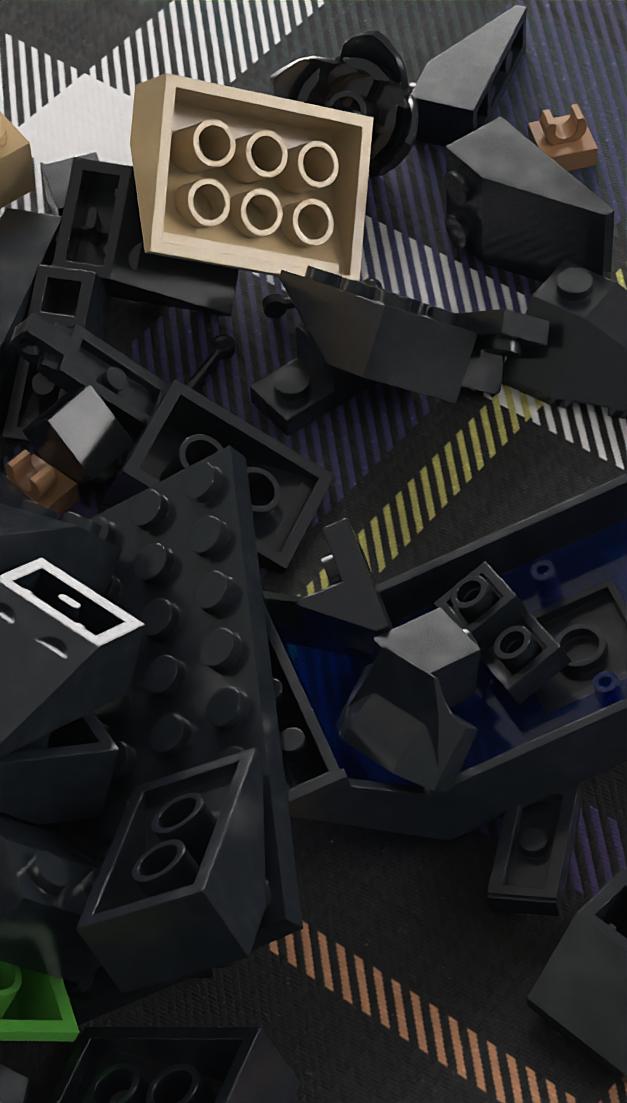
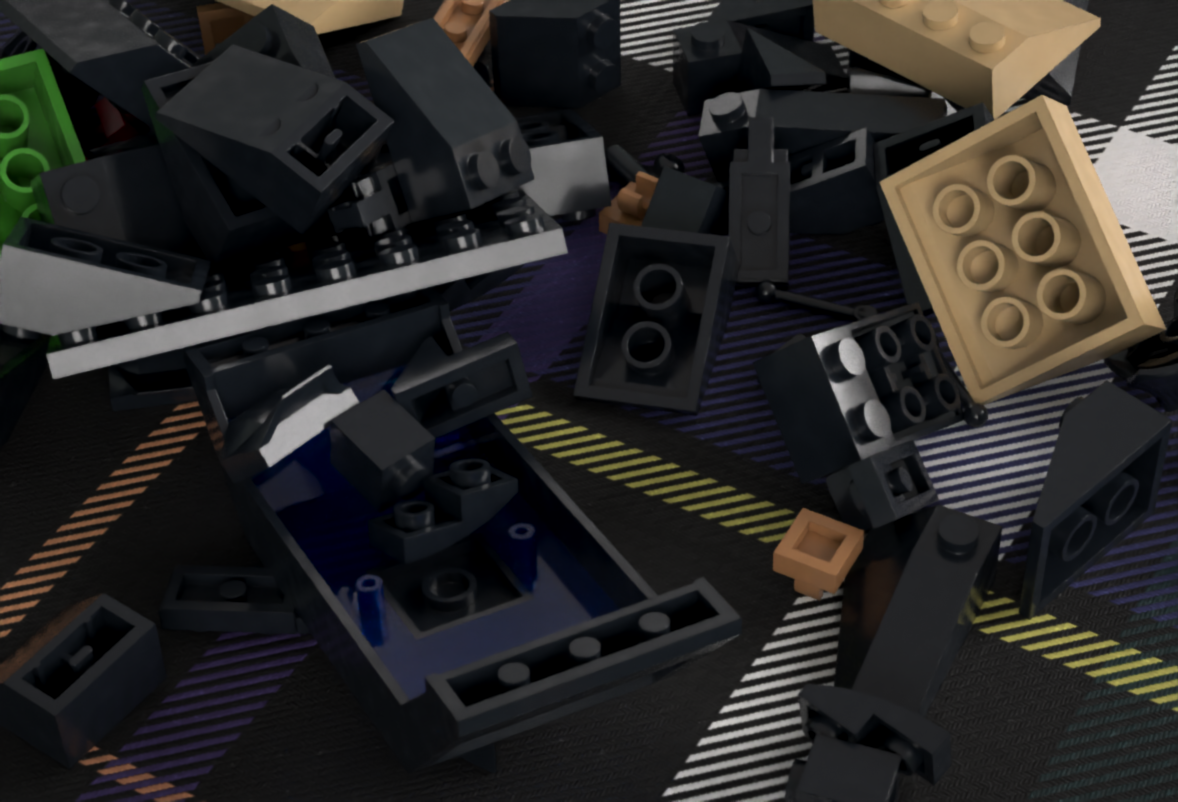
camera: 80 degrees right, 5 degrees down
(549, 396) = (817, 553): none -> medium nougat tile

